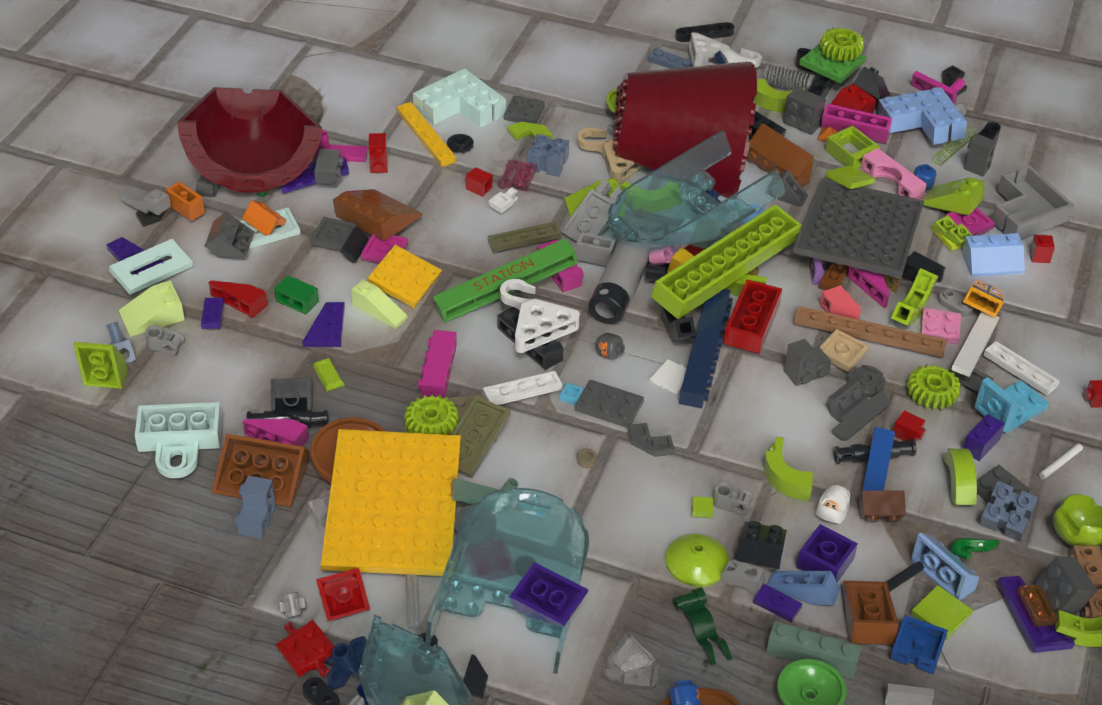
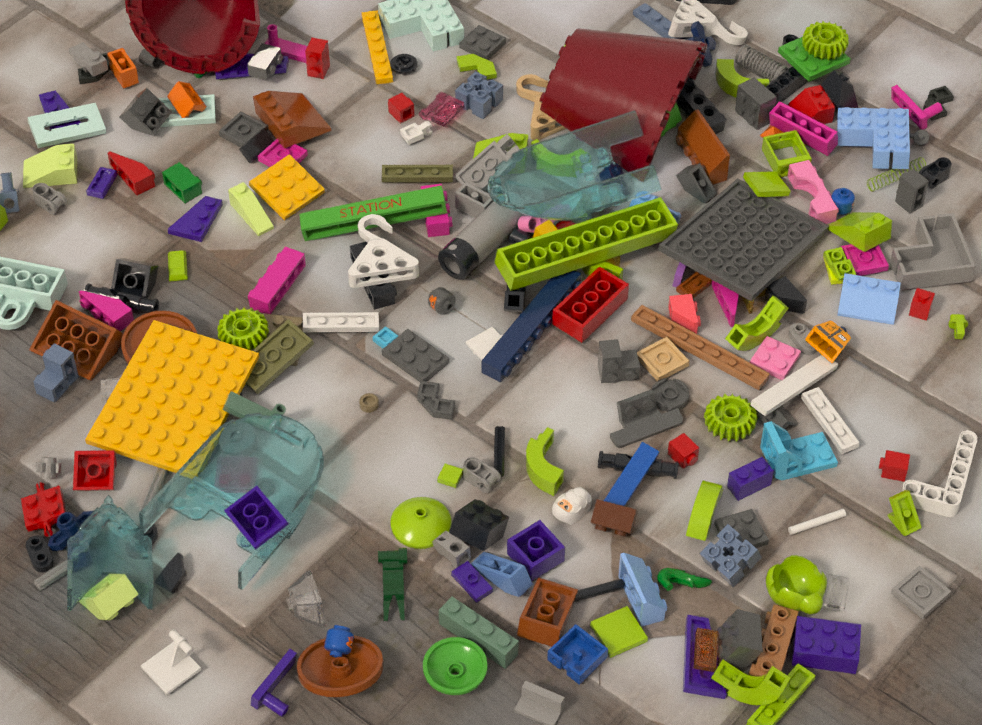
camera: 20 degrees right, 5 degrees up
(736, 469) = (499, 449): none -> black axle
(1082, 260) = (958, 323): none -> lime piece

